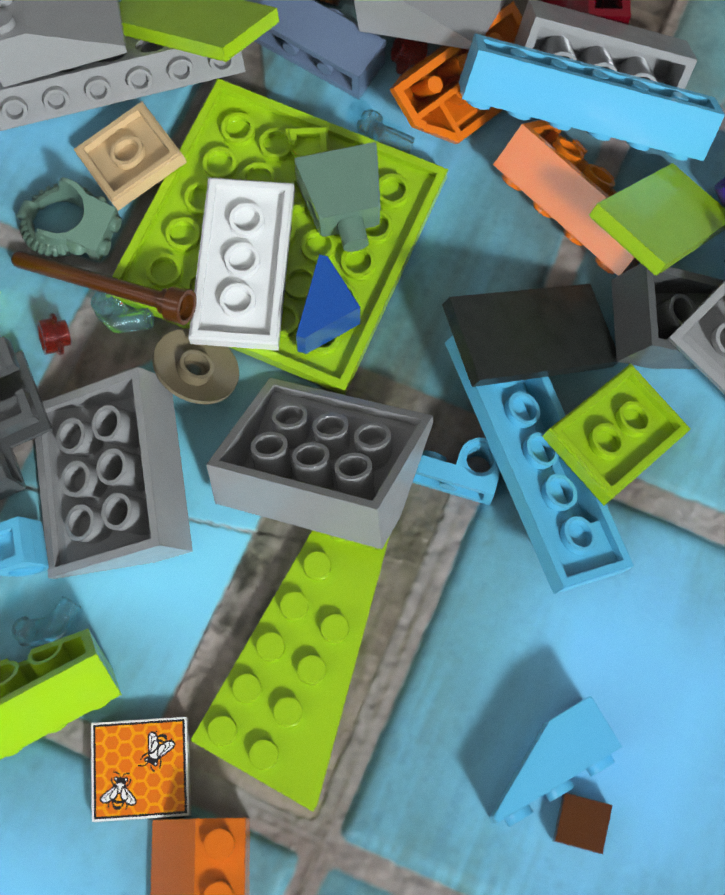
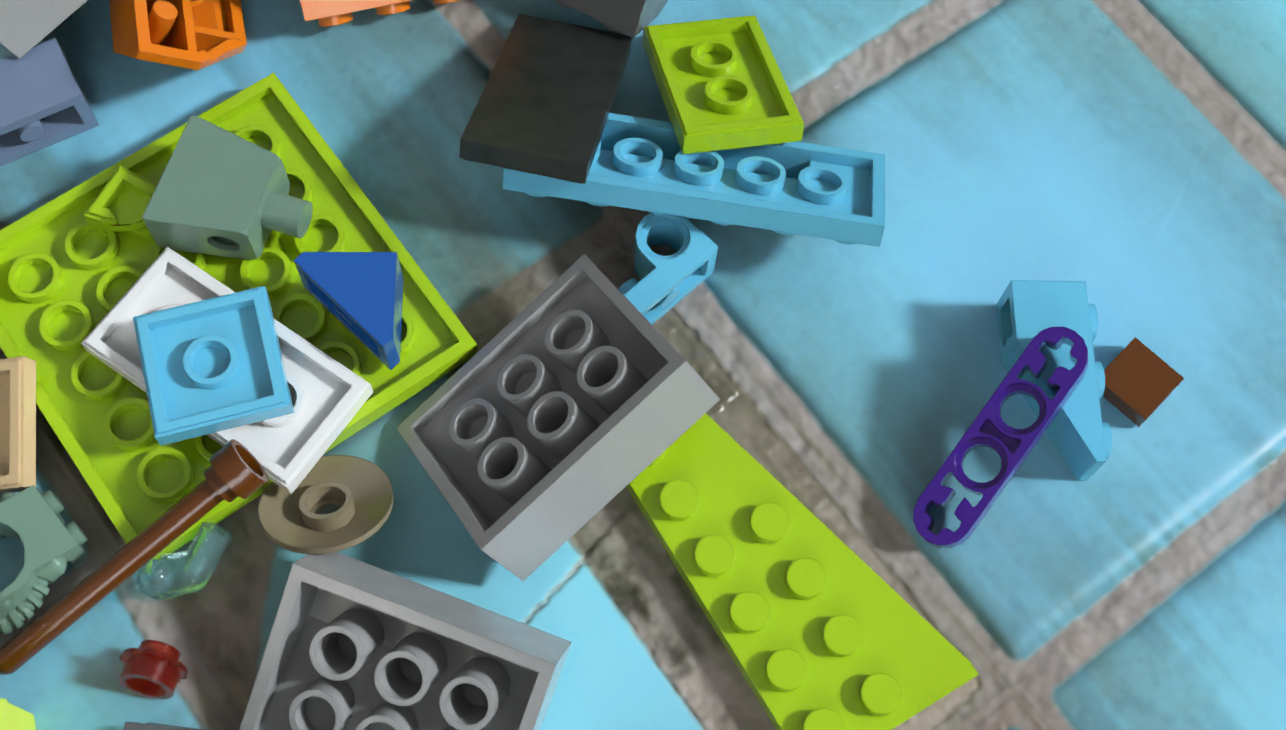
camera: 65 degrees left, 5 degrees down
(234, 253) = (212, 365): none -> medium azure tile
(372, 127) = (149, 126): clear light blue arm -> none
(407, 53) = (86, 32): clear red plate -> none
(472, 751) = (992, 432): none -> dark purple beam

